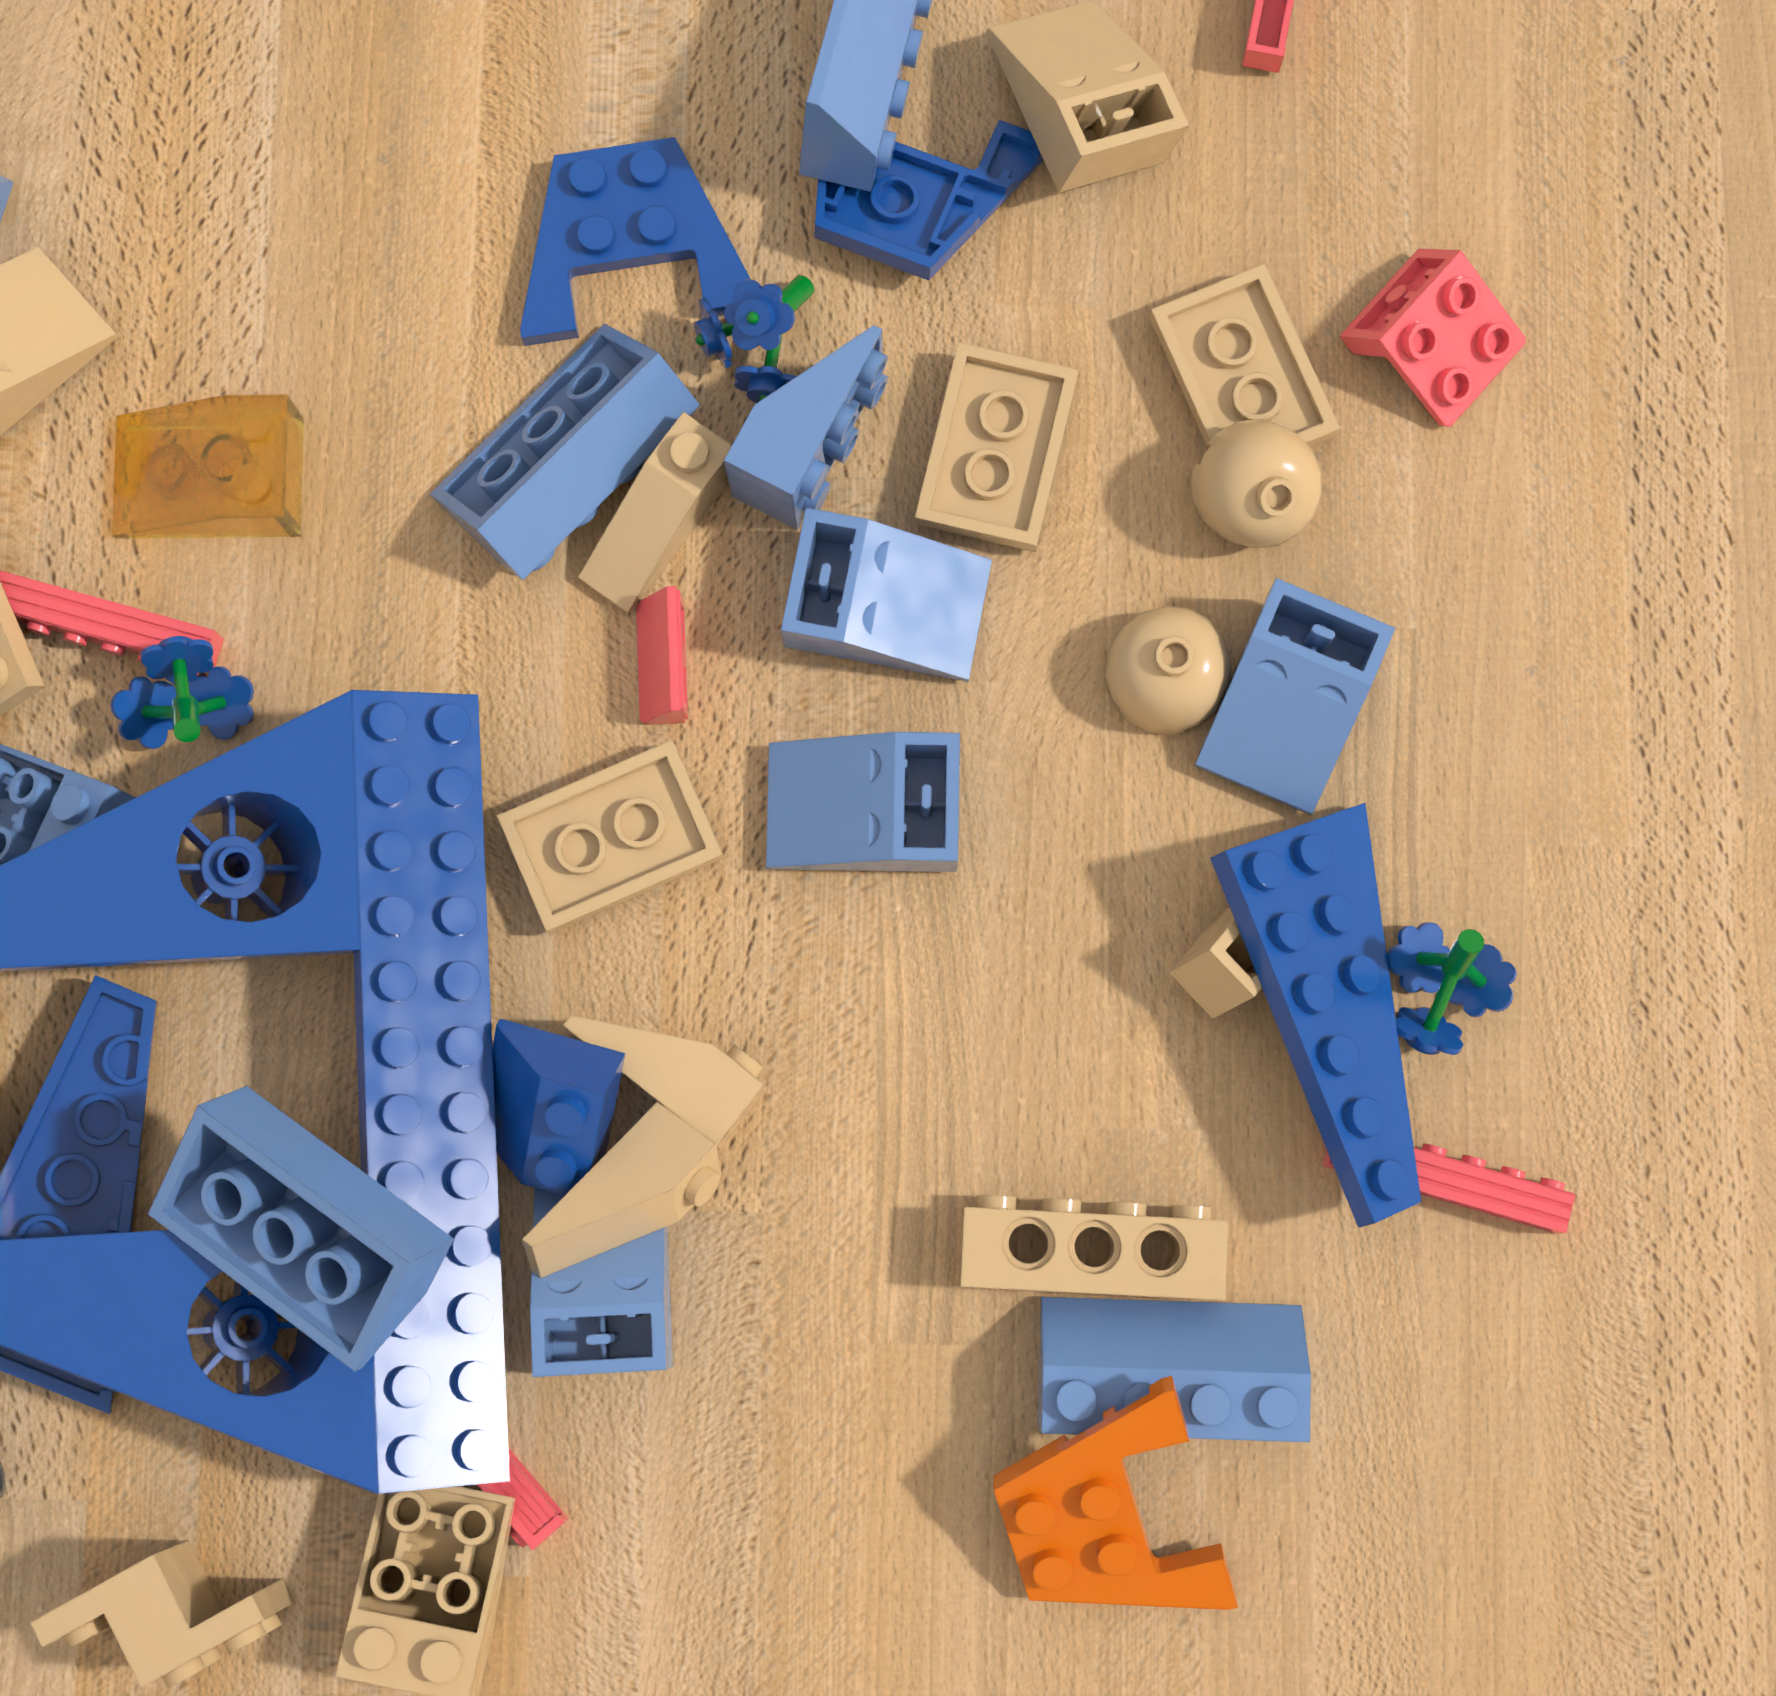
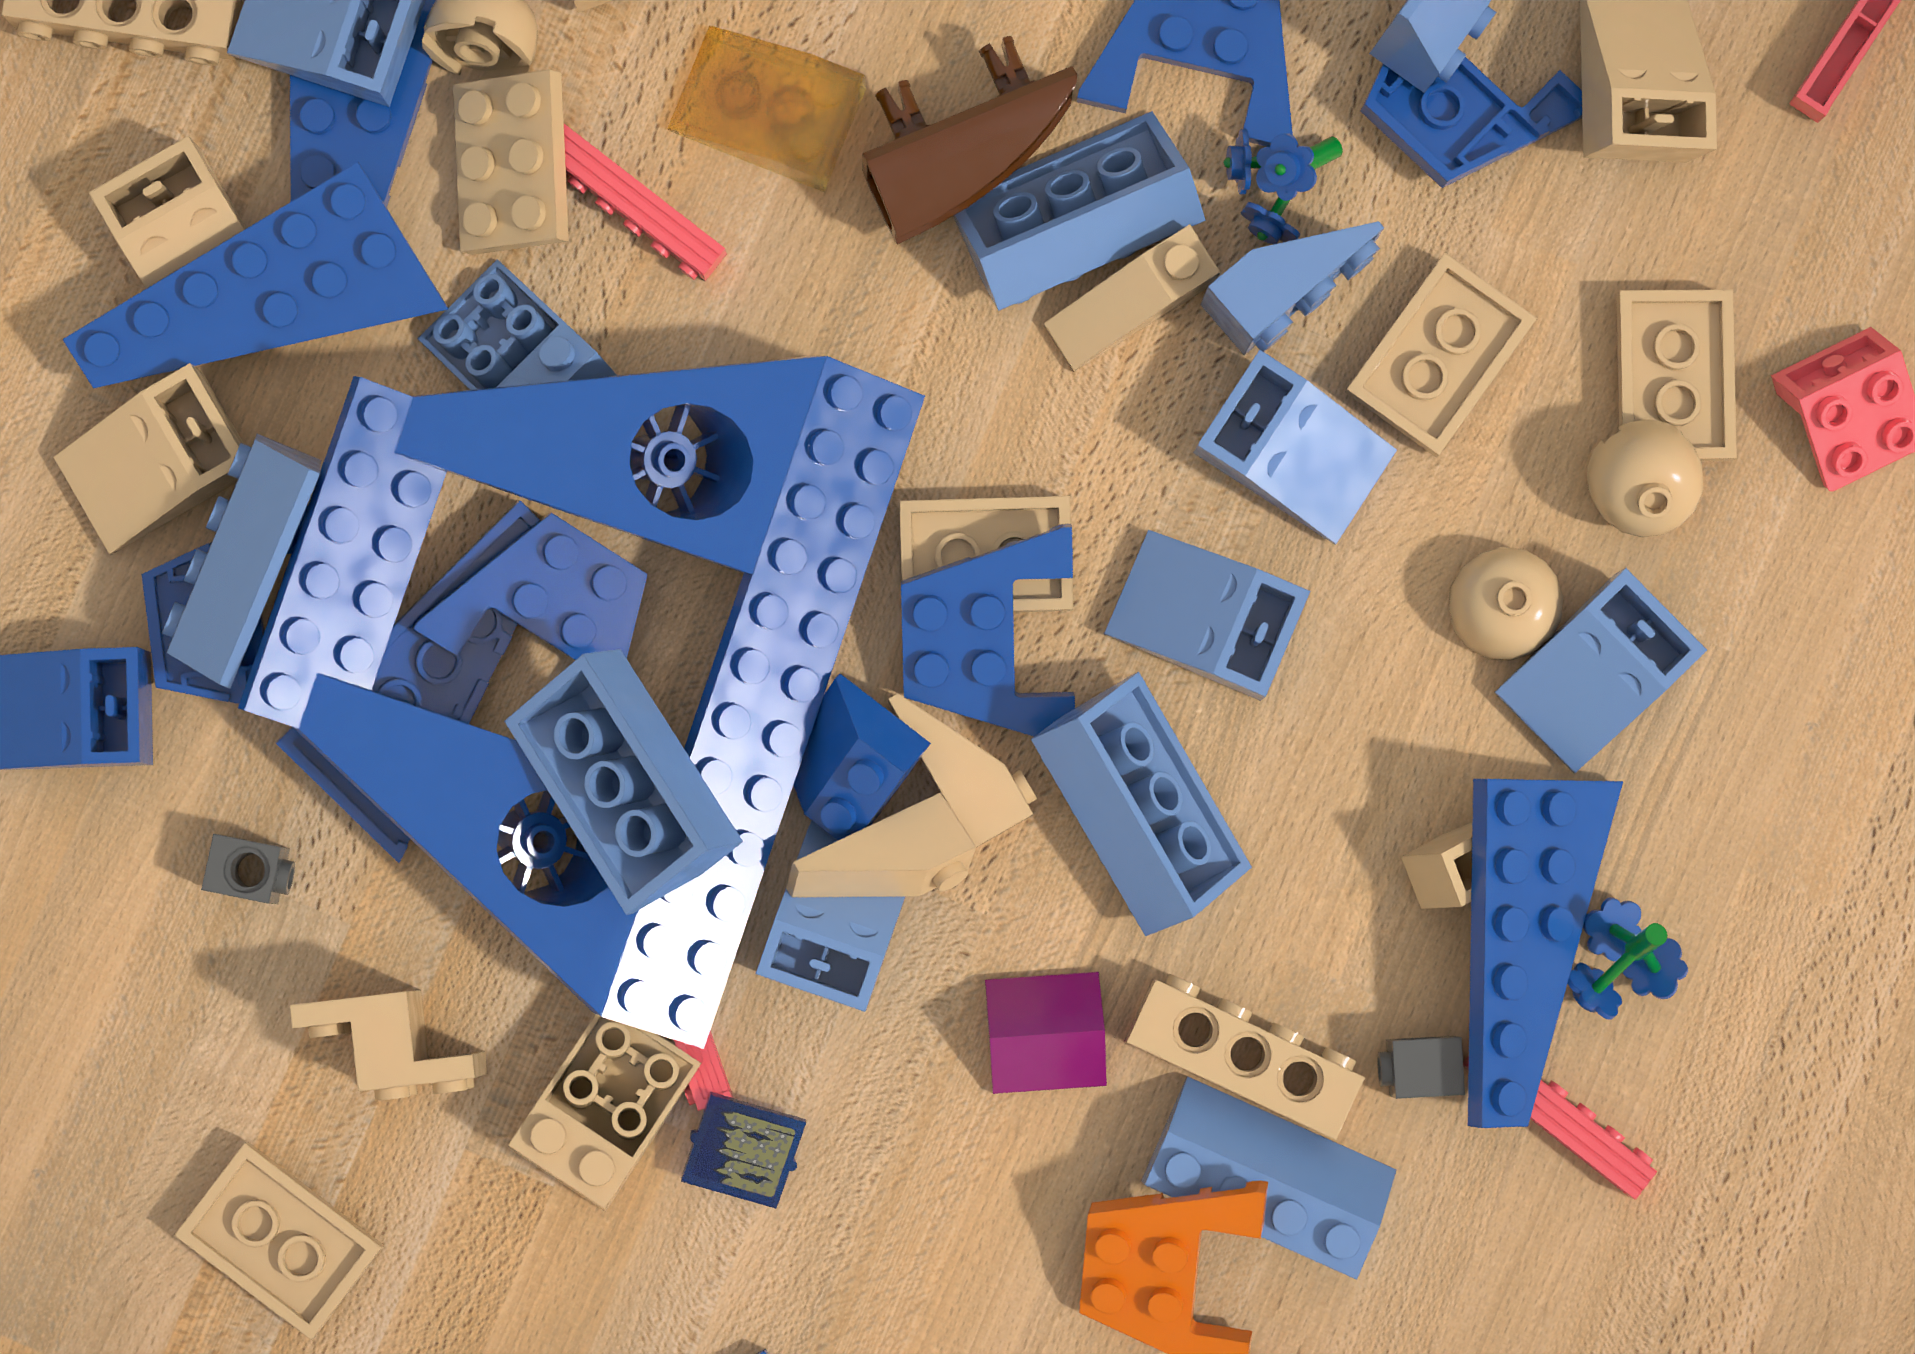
camera: 15 degrees right, 5 degrees up
(157, 1050) = (552, 586): none -> wing
(209, 700) = (697, 310): blue plant -> none
(426, 436) = (956, 161): none -> reddish brown piece
(598, 1573) = (743, 1150): none -> piece
(619, 931) = (963, 633): none -> blue wing
(662, 658) = (1086, 421): coral slope -> none
(872, 1312) = (1046, 1032): none -> magenta slope
(876, 1029) = (1142, 805): none -> medium blue slope
(1284, 1185) = (1422, 1067): none -> dark grey brick

